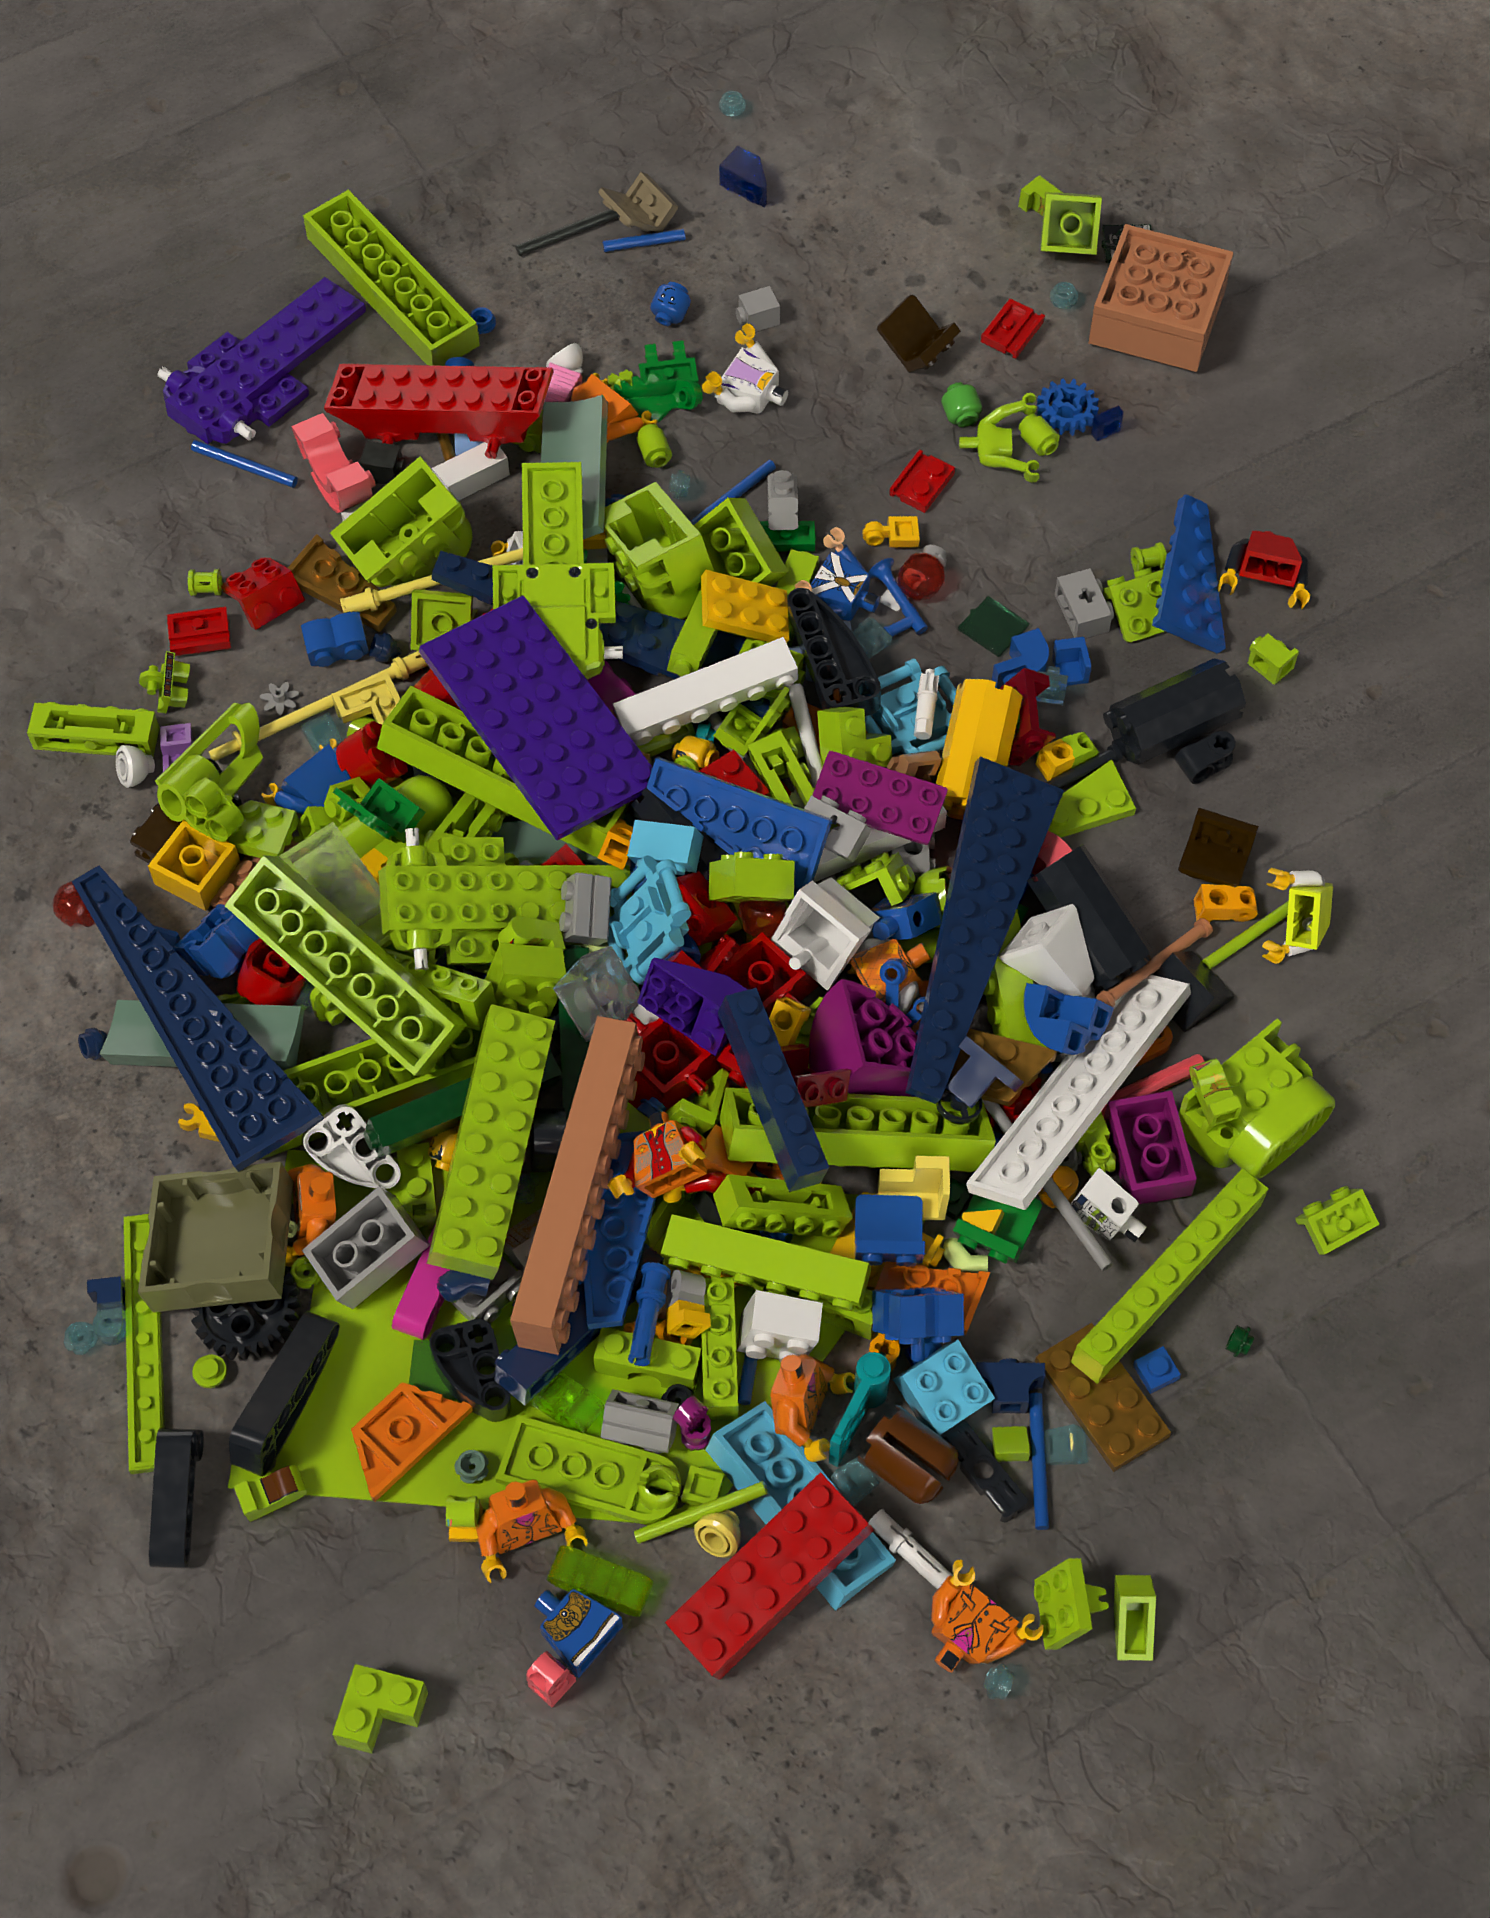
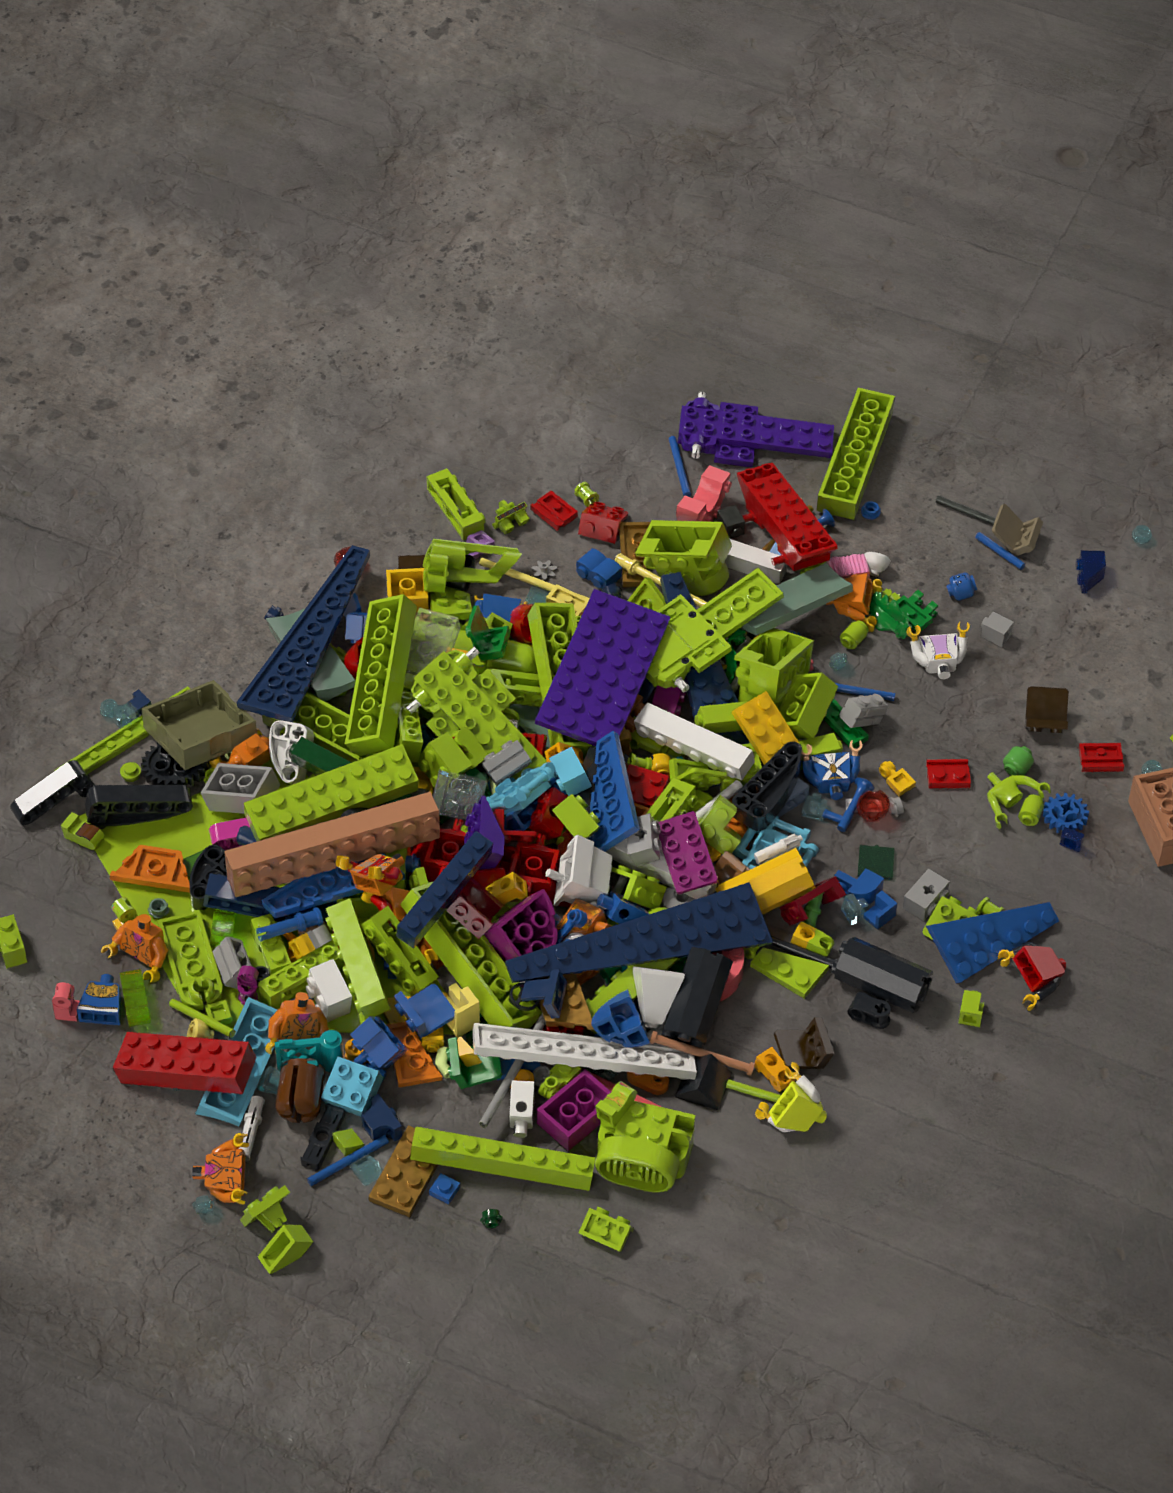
camera: 55 degrees right, 10 degrees down
(133, 765) = (448, 531): white brick -> none

